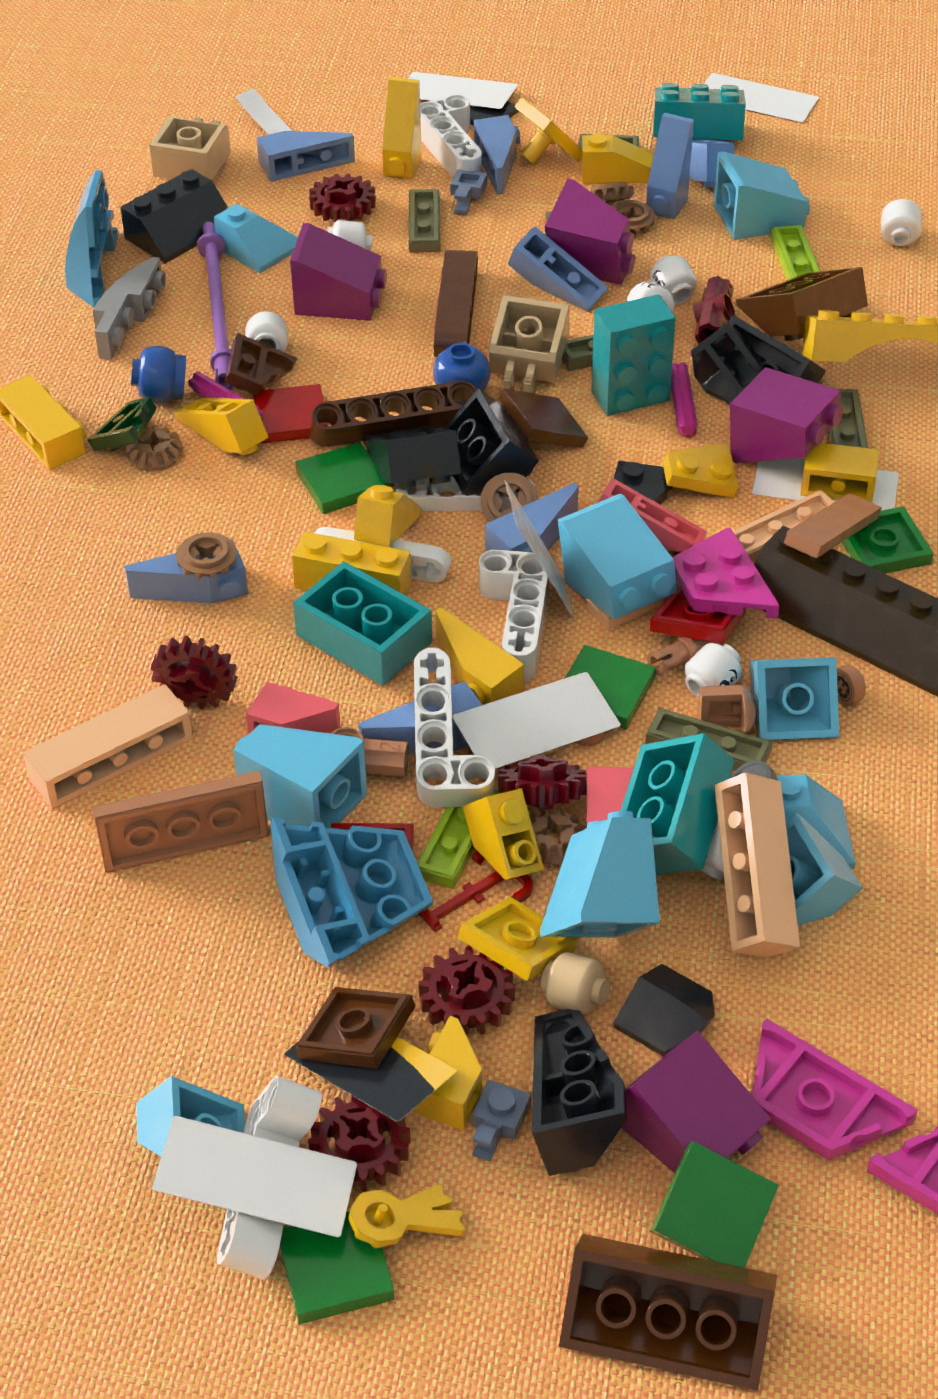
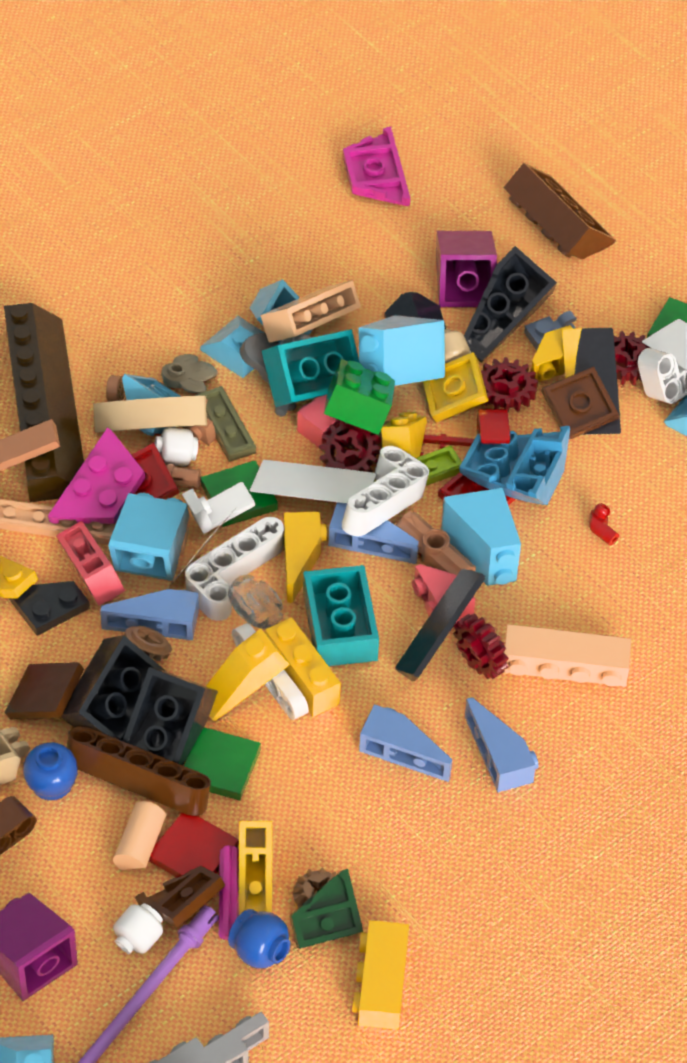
camera: 140 degrees left, 5 degrees up
(99, 627) = (501, 748): none -> medium blue slope
(181, 821) = (575, 557): nougat tile -> none
(201, 911) = (599, 524): none -> red arm
(206, 545) = (407, 714): medium nougat gear -> none
(252, 665) = (439, 624): none -> black slope
(334, 378) = (139, 836): none -> light nougat brick
(383, 1218) = (648, 319): yellow piece -> none
(430, 920) = (493, 426): none -> red panel
(456, 583) = (255, 602): none -> clear tile
(571, 780) = (360, 396): none -> green brick
(598, 626) = (214, 511): none -> white bracket
(714, 1207) = (502, 221): green tile -> none
(740, 662) = (150, 413): none -> tan slope
(805, 757) = (188, 373): none -> dark tan plate
(821, 1098) = (396, 238): dark pink wing -> none

